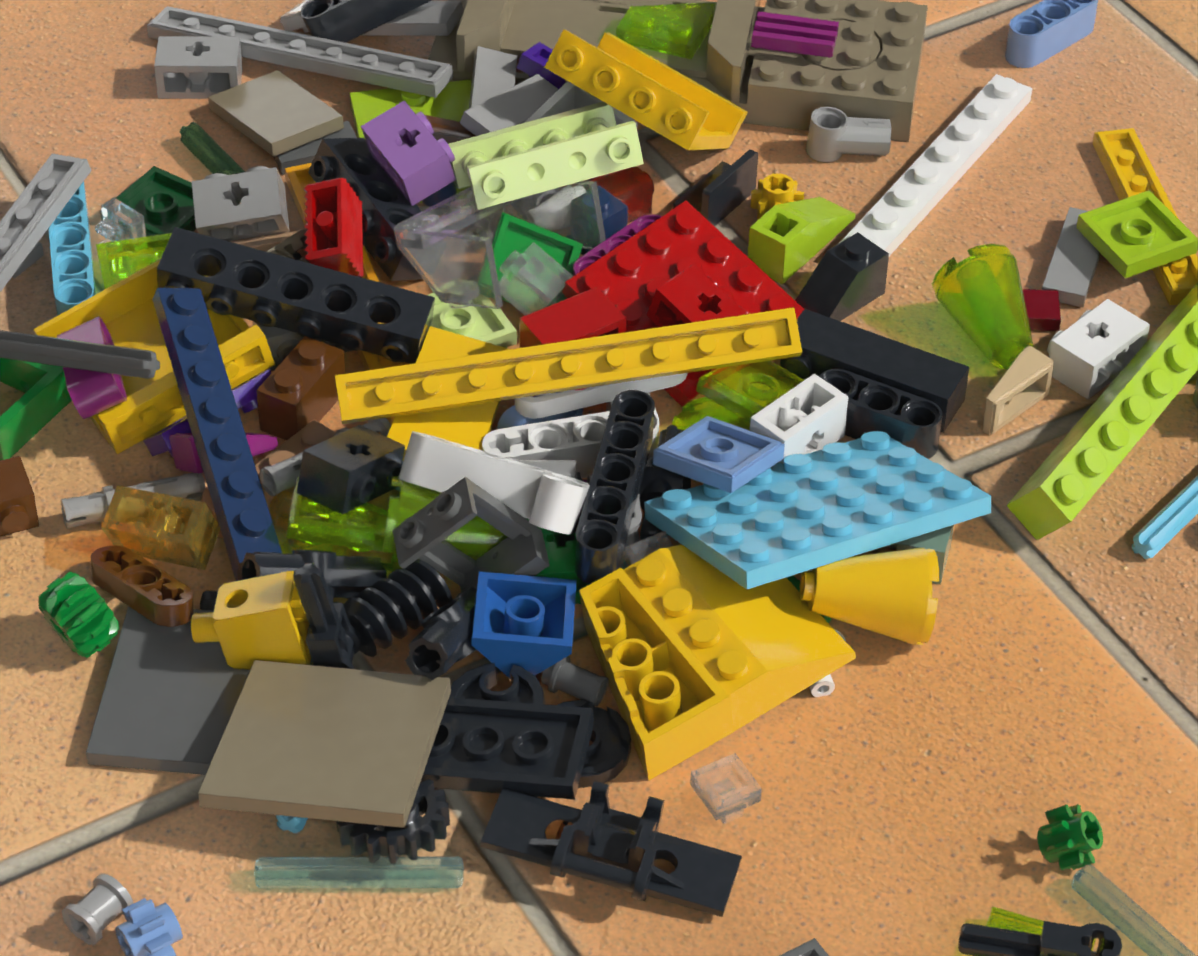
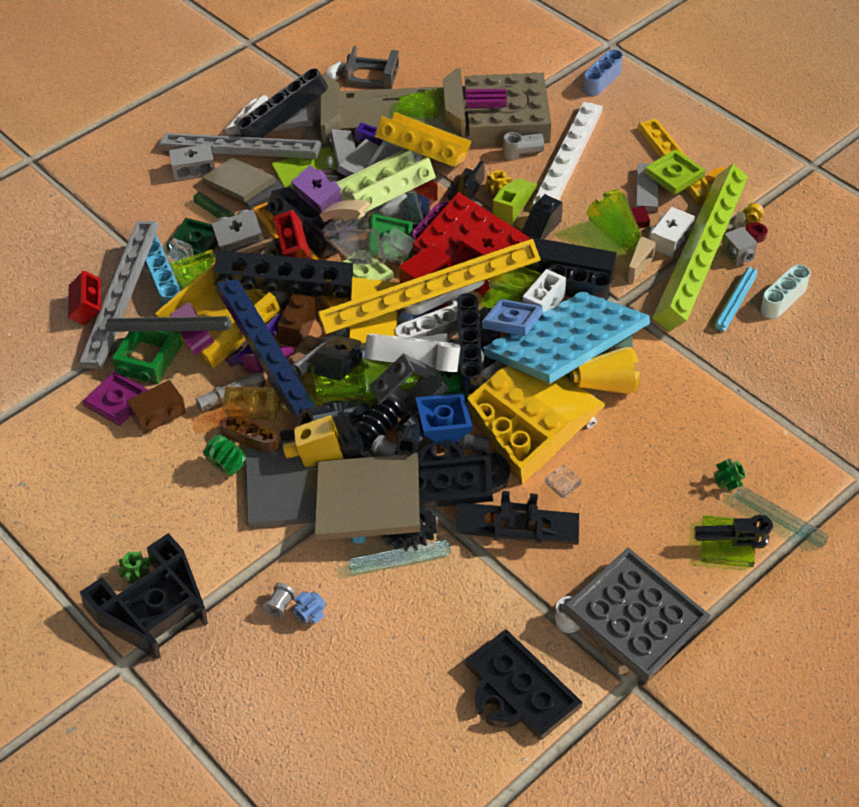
camera: 10 degrees left, 5 degrees up
(388, 655) = (383, 447): none -> light grey bush
(448, 196) = (346, 209): none -> tan slope

